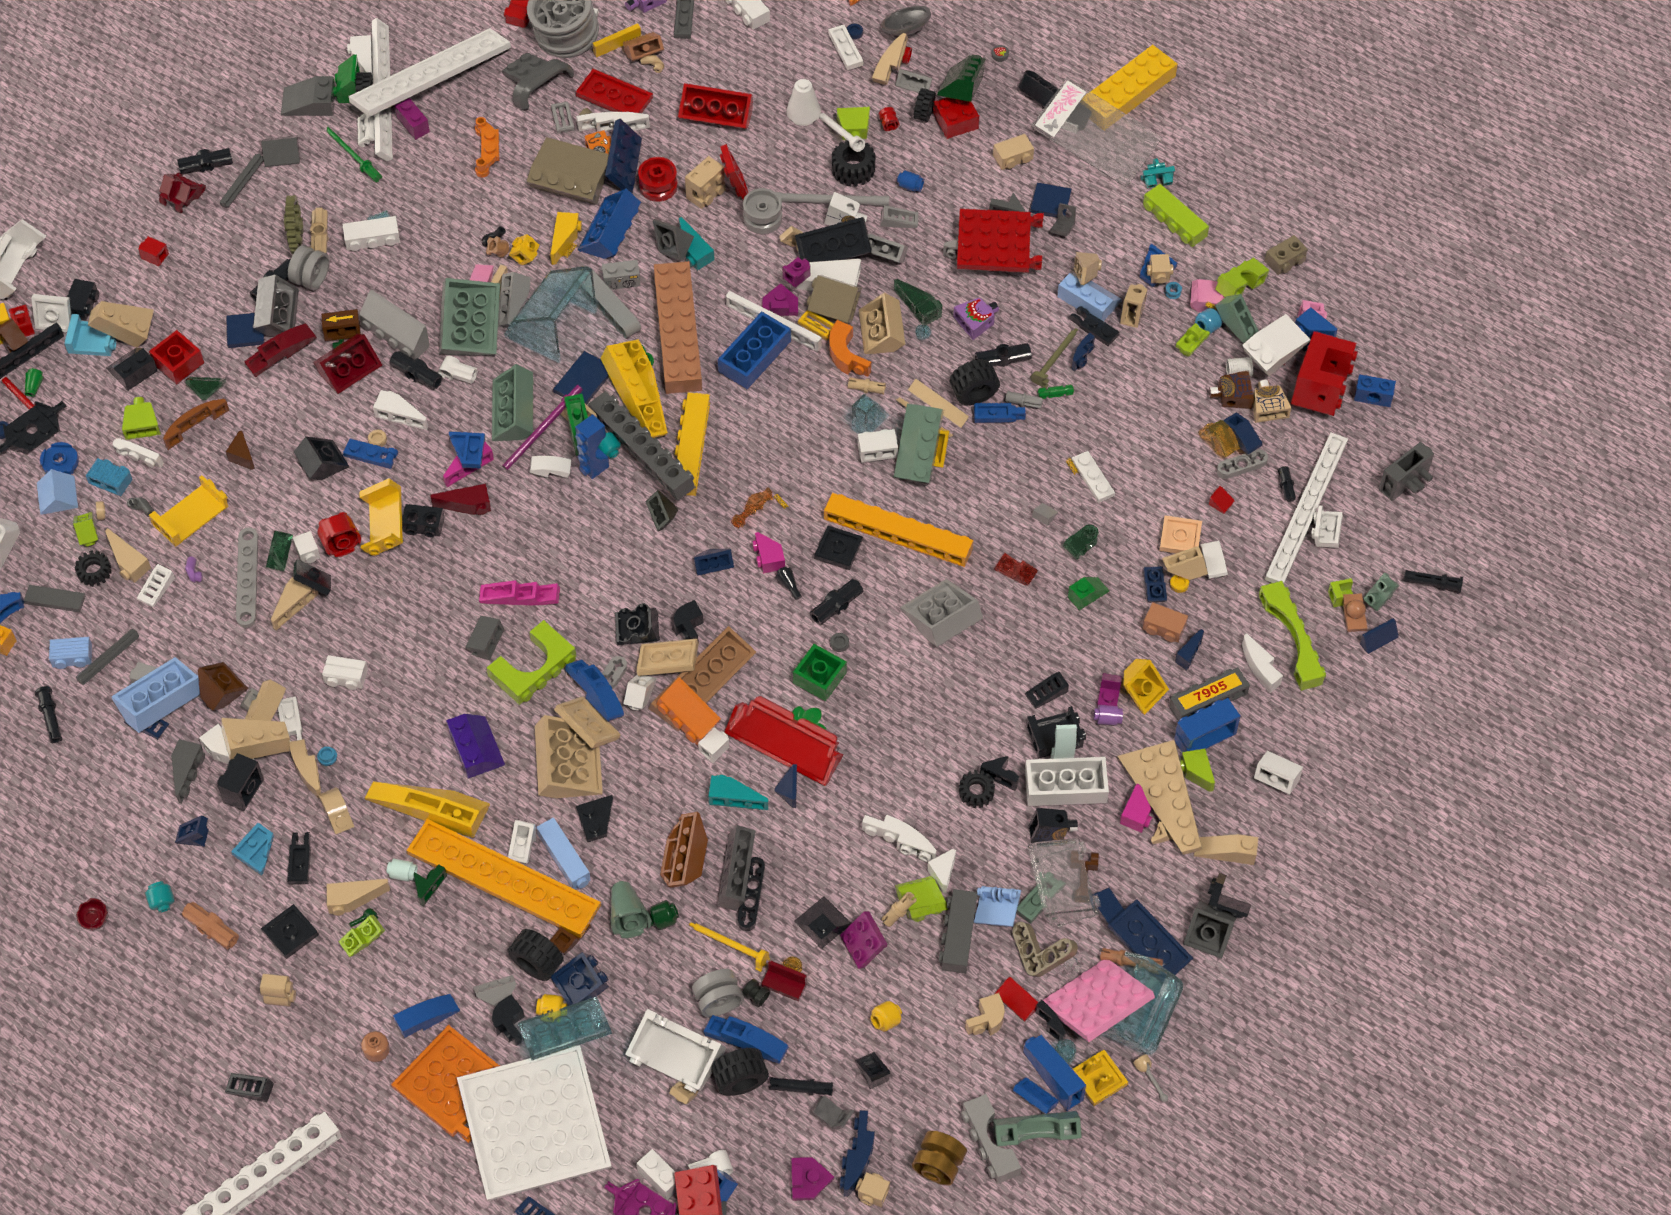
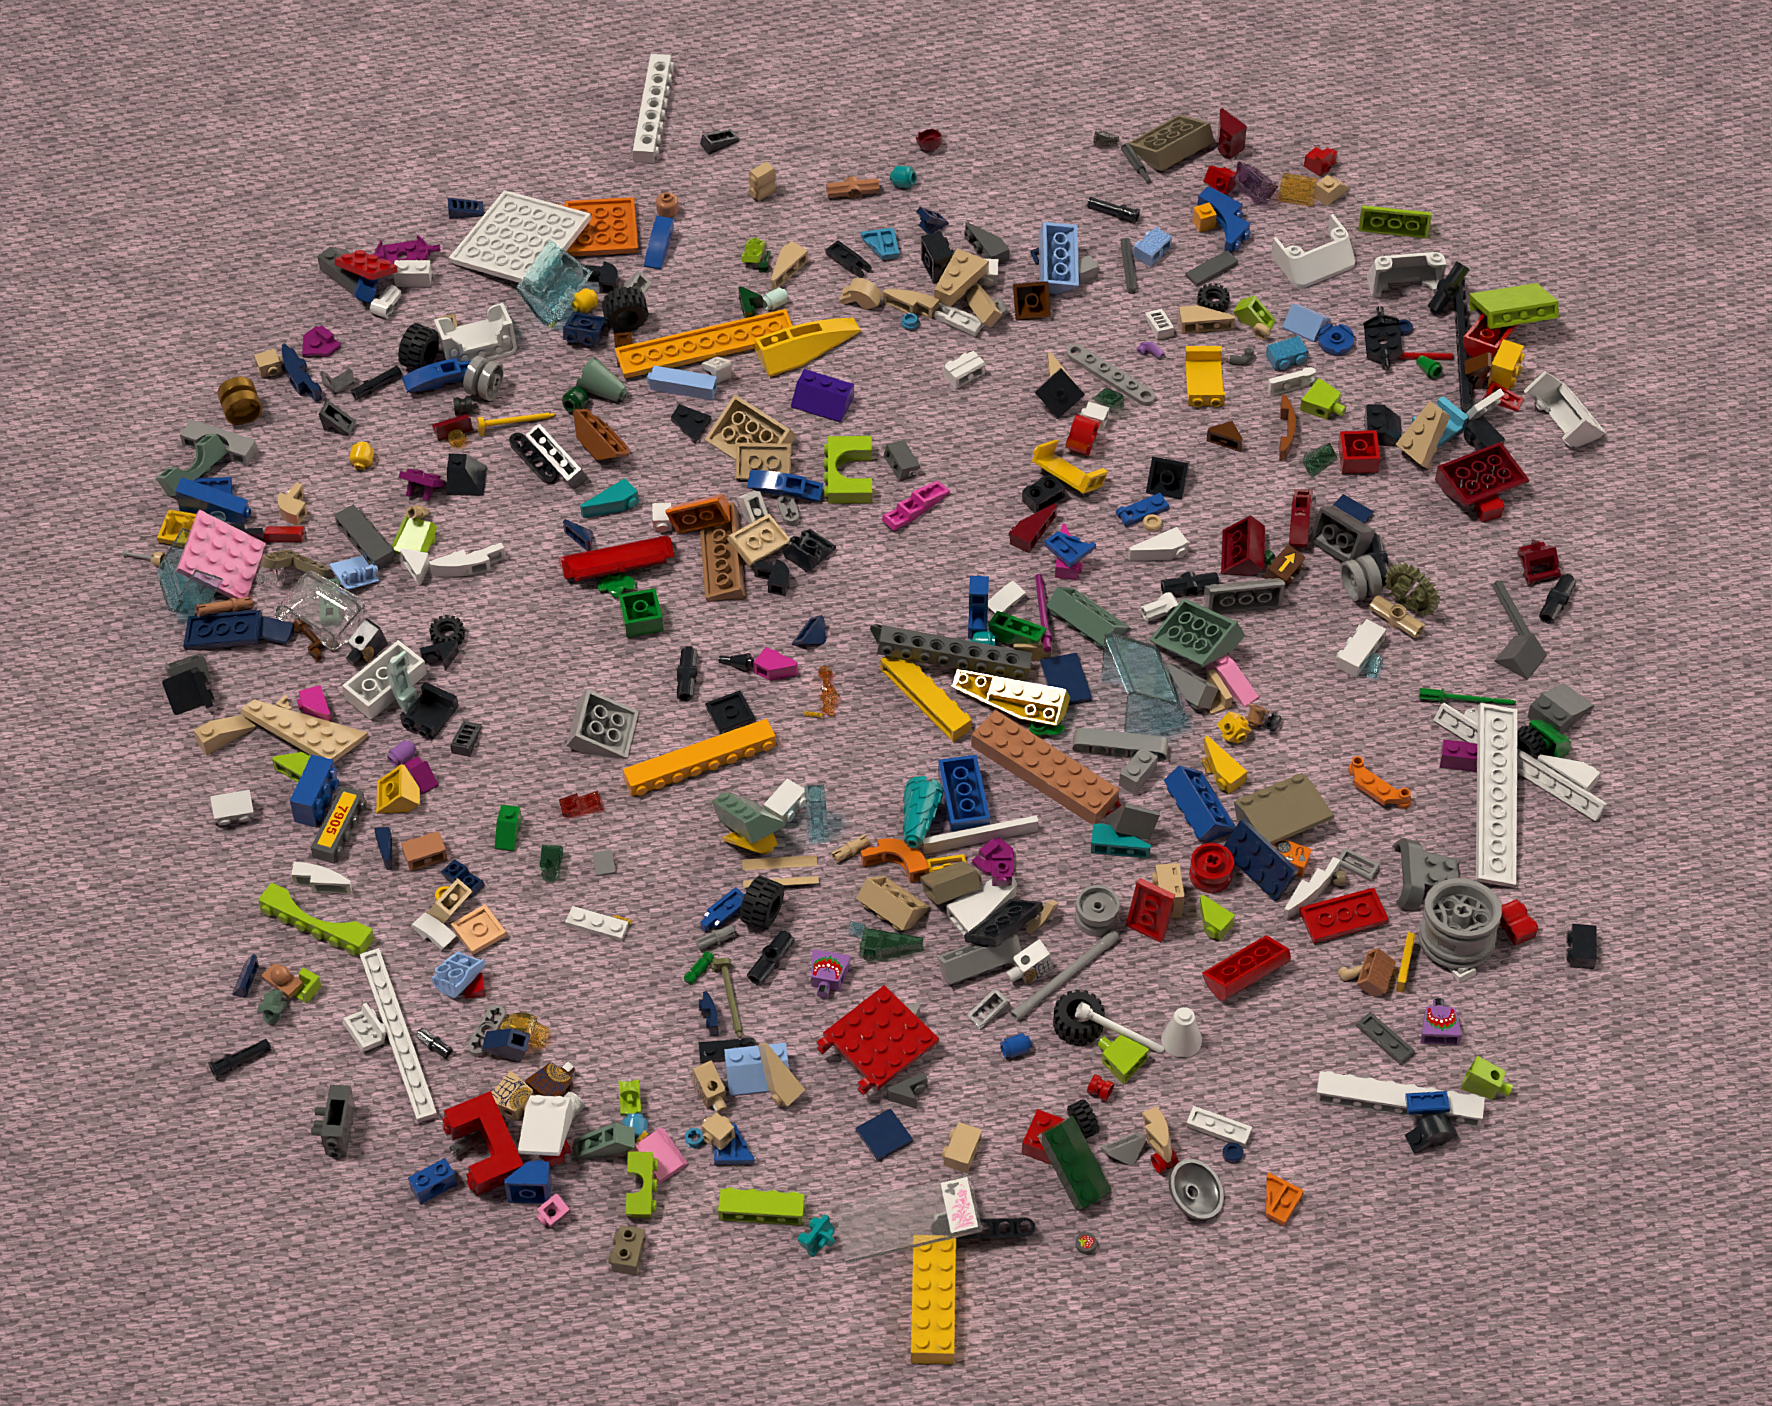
camera: 135 degrees right, 5 degrees down
(129, 268) = (1480, 475): none -> dark red slope
(289, 931) = (800, 221): black plate -> none
(695, 151) = (1215, 918): none -> lime slope
(799, 356) = (920, 807): none -> teal cone
(839, 642) = (655, 653): dark grey tile -> none
(1064, 224) = (846, 1115): flat silver bracket -> none
(1226, 511) = (456, 973): none -> light blue slope

